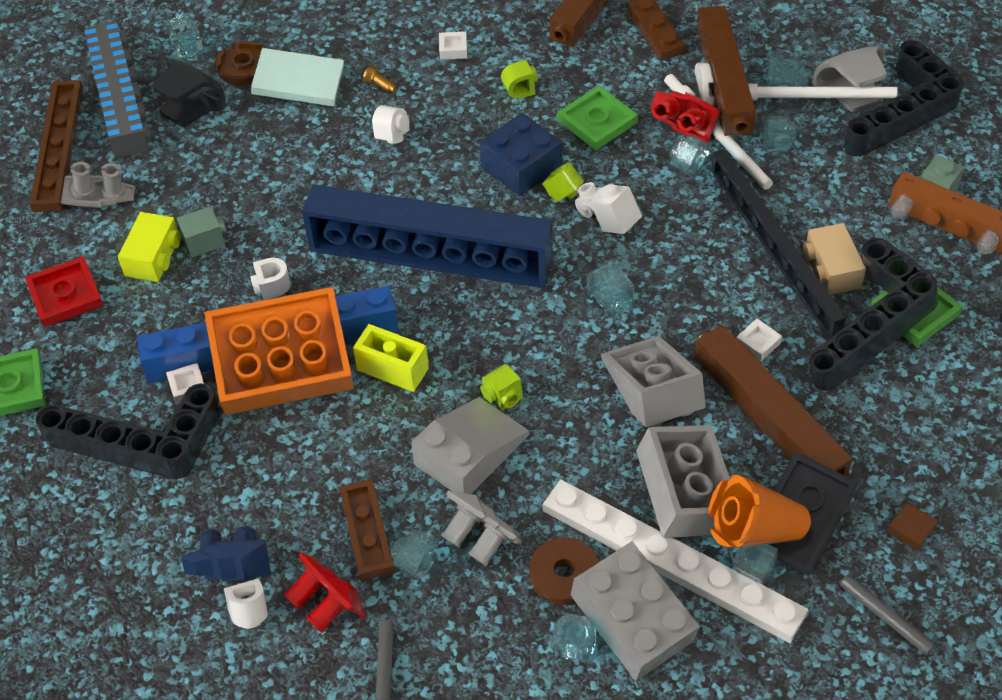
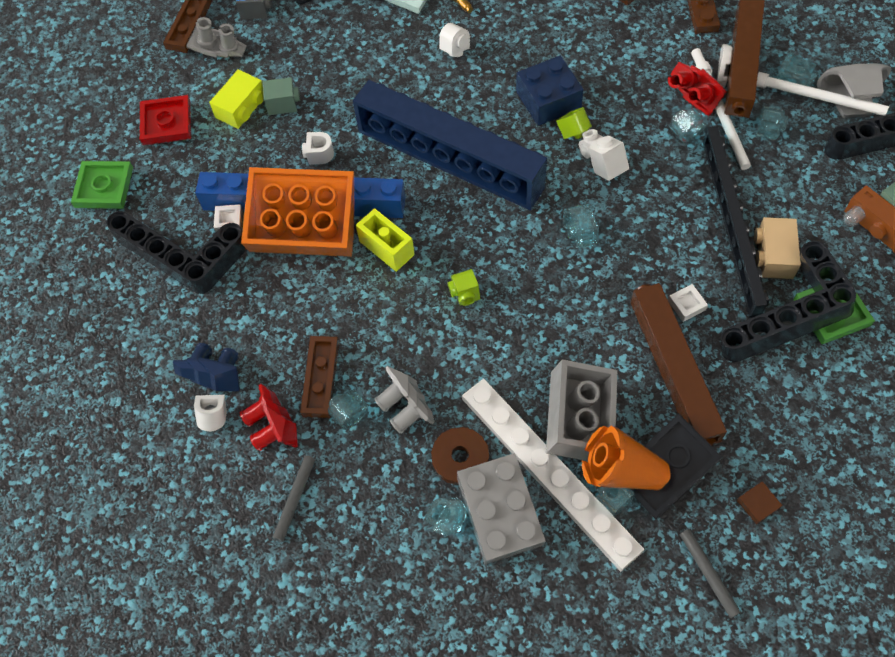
camera: 20 degrees right, 10 degrees up
(467, 445) = (422, 328): light grey slope -> none
(519, 79) = (570, 25): lime plate -> none
(597, 117) = (623, 73): bright green plate -> none
(655, 381) = (589, 315): light grey slope -> none

